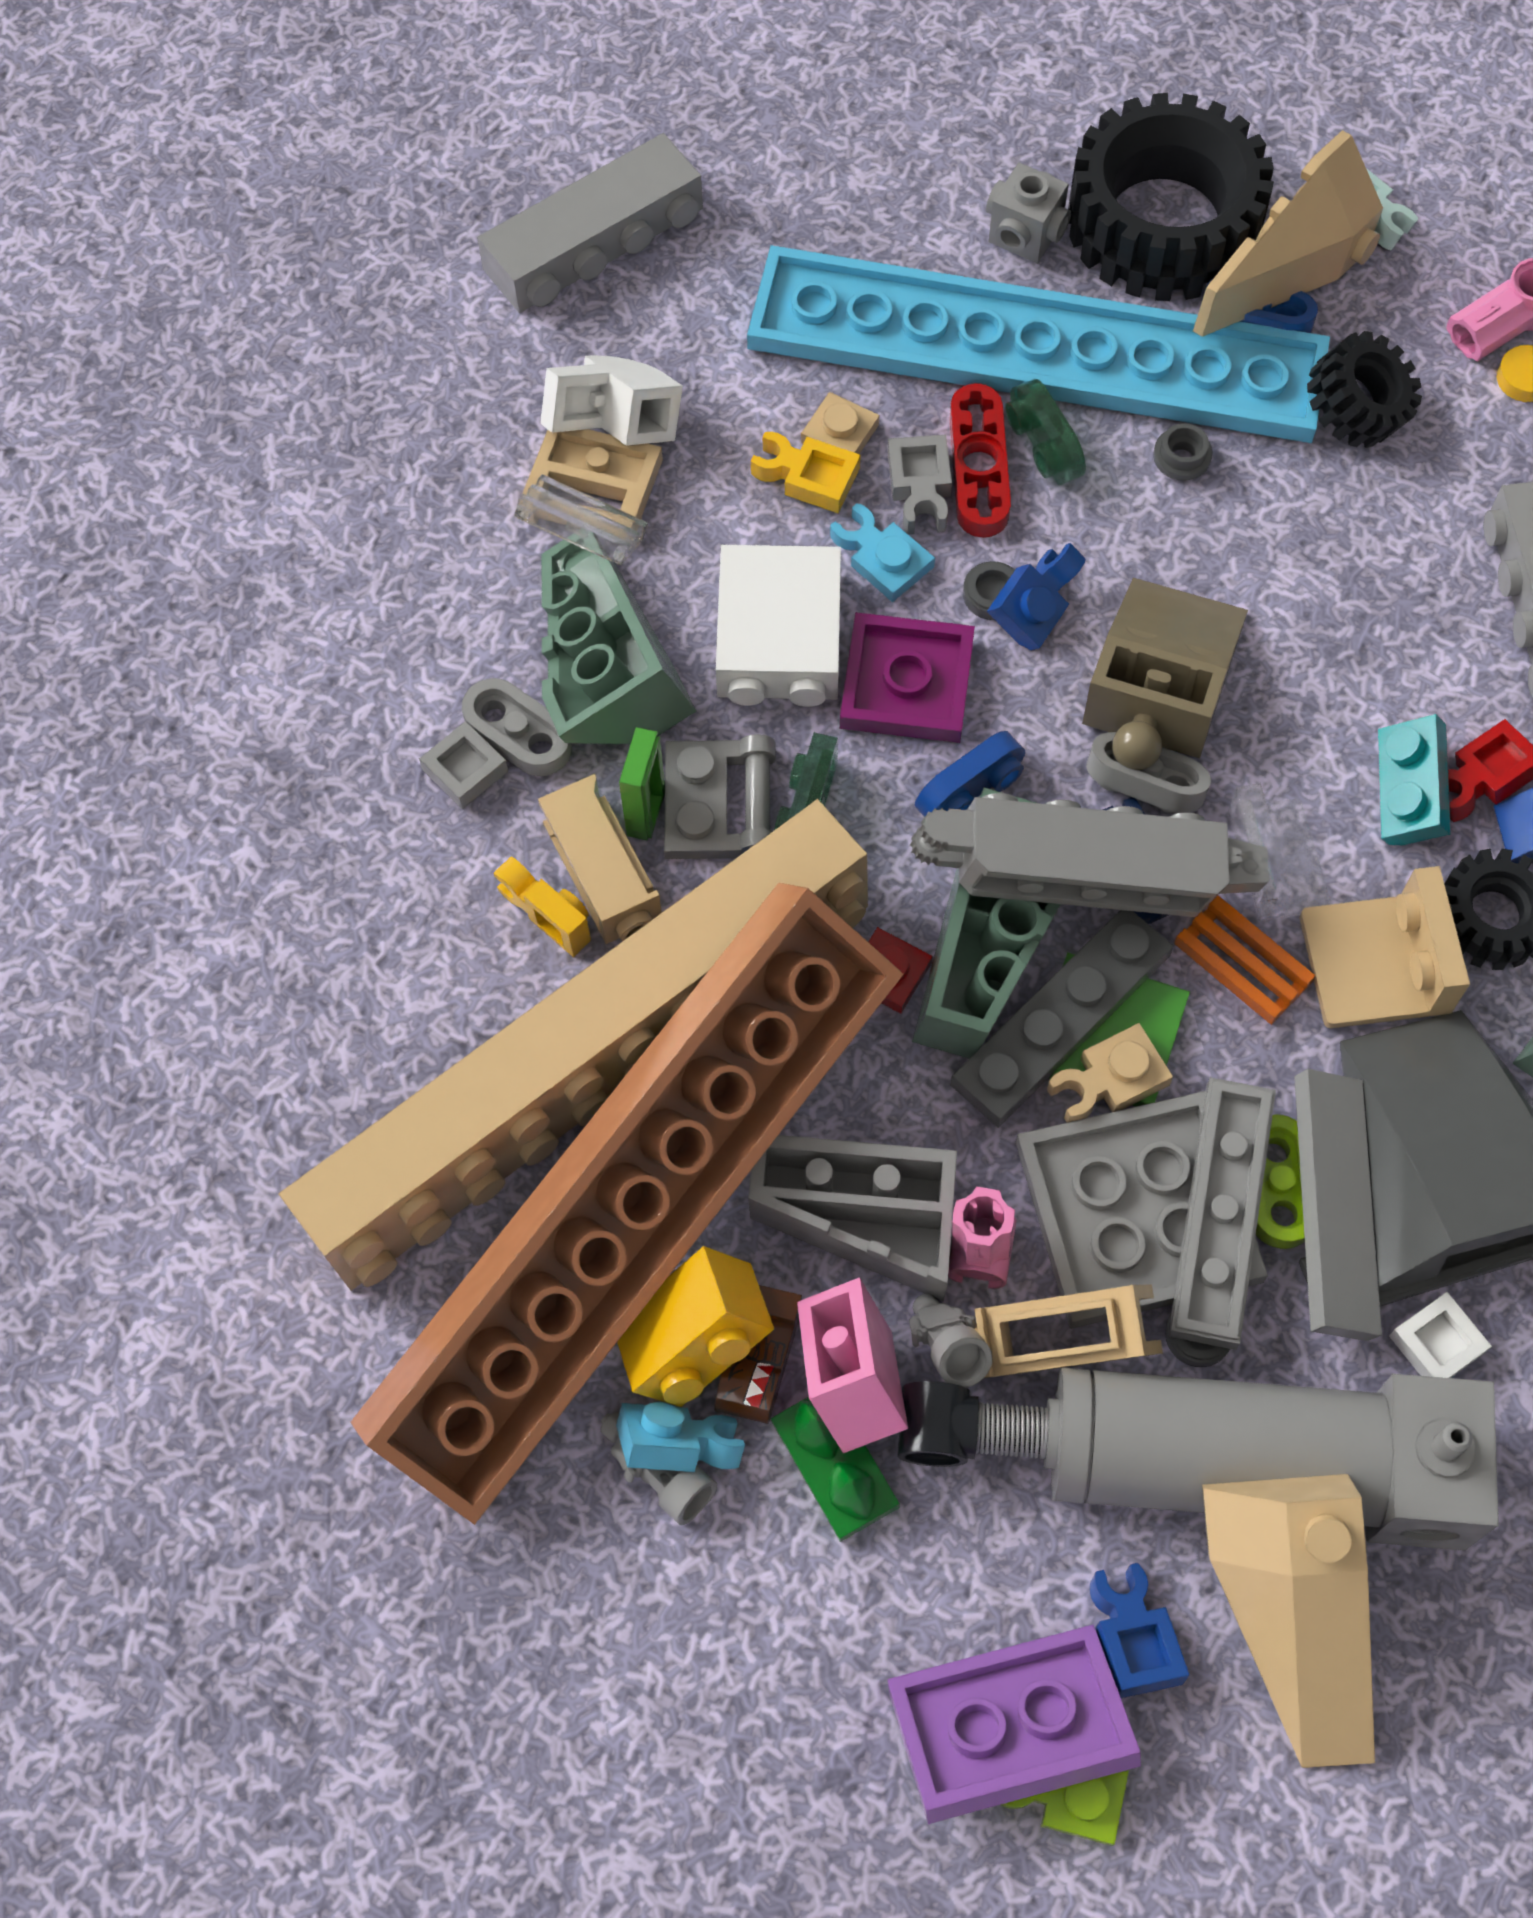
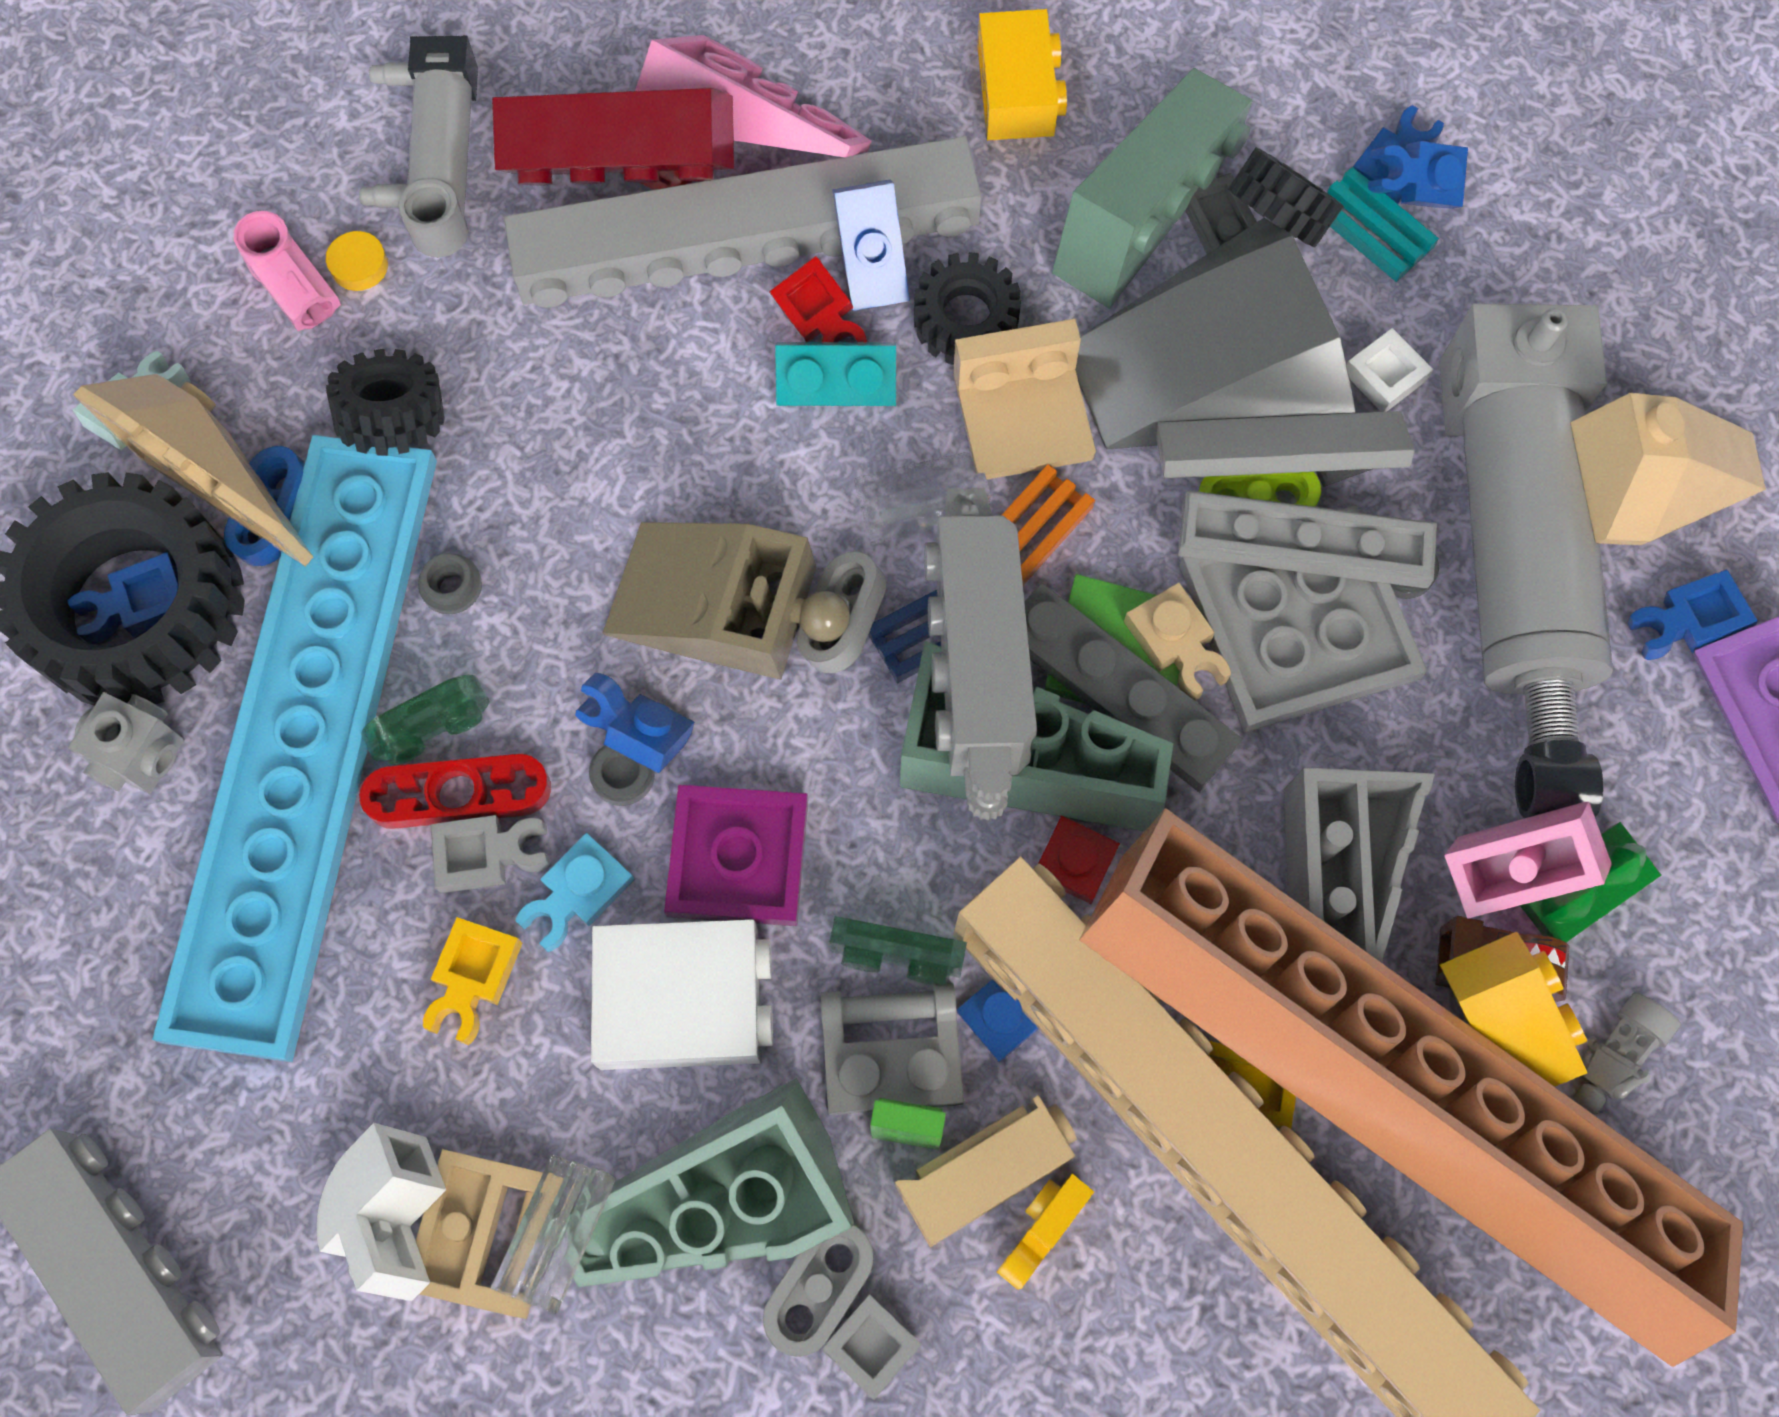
camera: 95 degrees left, 5 degrees up
(668, 1438) = (1615, 1034): medium azure plate -> none
(841, 424) = (408, 946): tan plate -> none
(955, 1345) = (1495, 762): light grey piece -> none
(982, 1238) = (1372, 741): bright pink piece -> none
(988, 765) = (844, 763): blue plate -> none
(1123, 1319) = (1451, 670): tan window -> none
(1158, 203) = (137, 599): none -> blue plate

